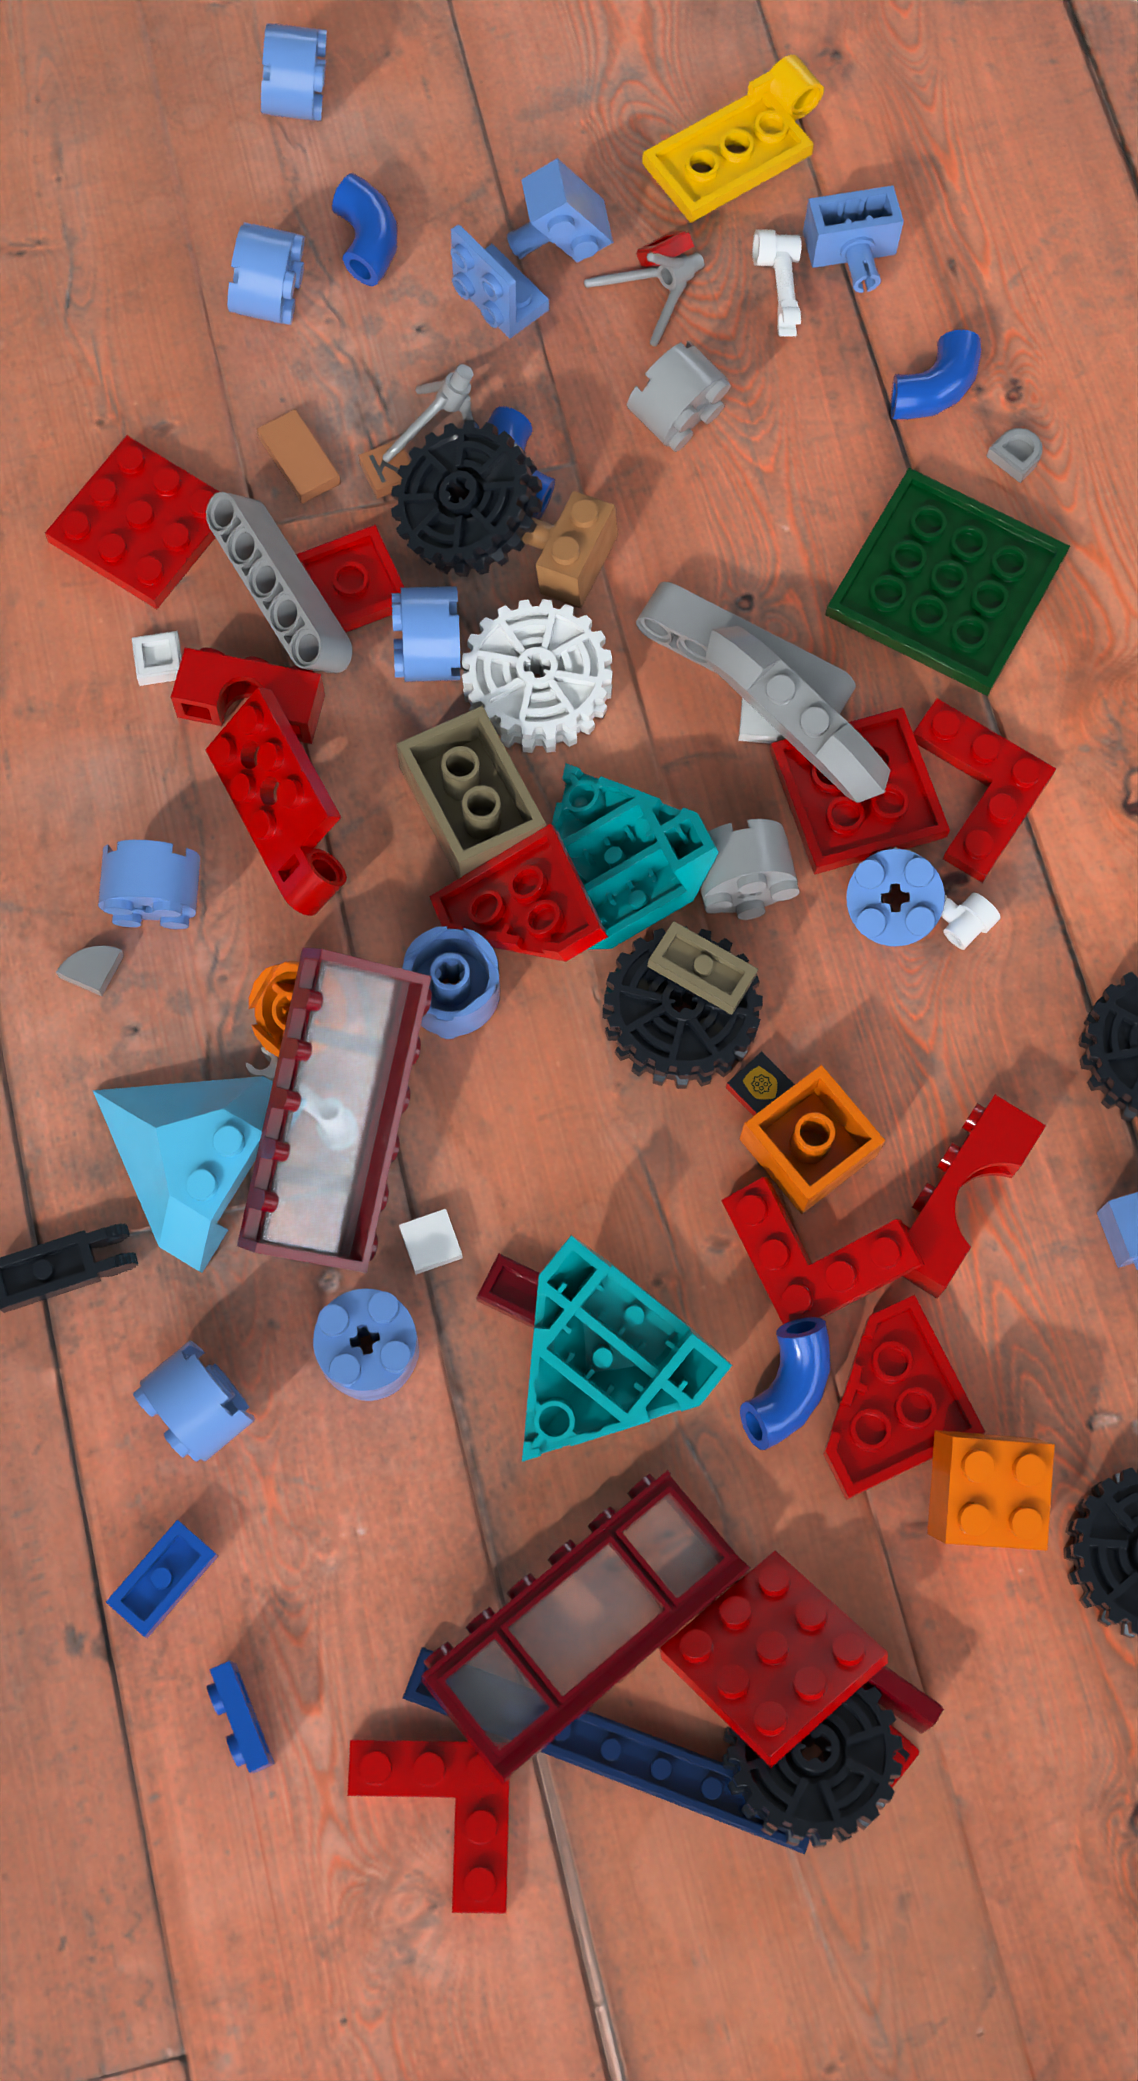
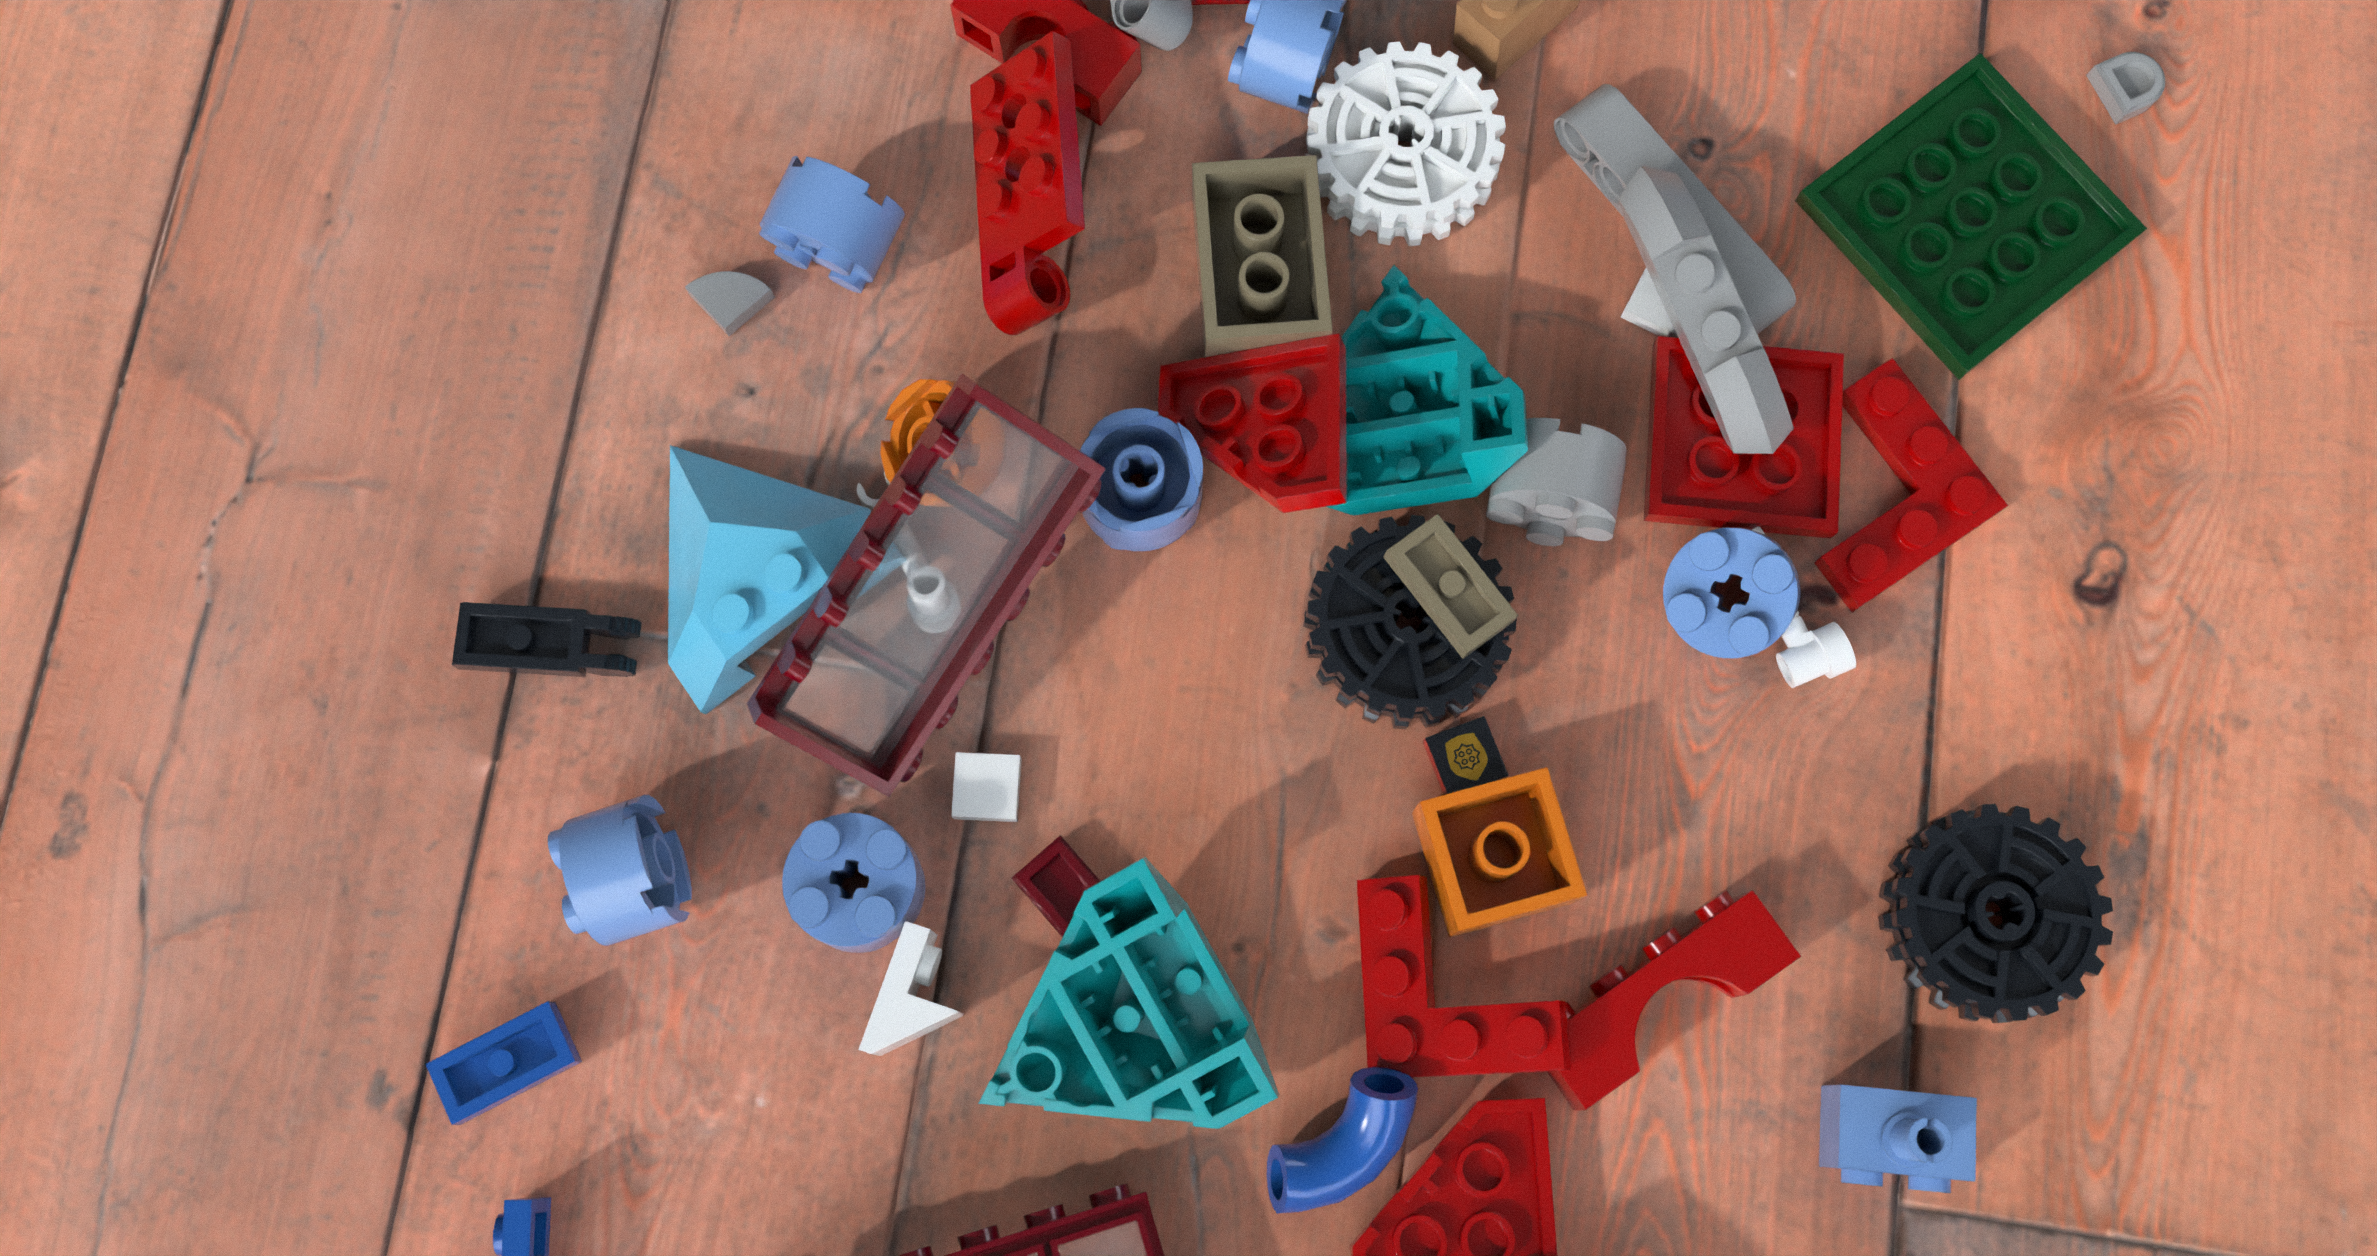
camera: 25 degrees right, 5 degrees up
(439, 1421) = (898, 1013): none -> white slope

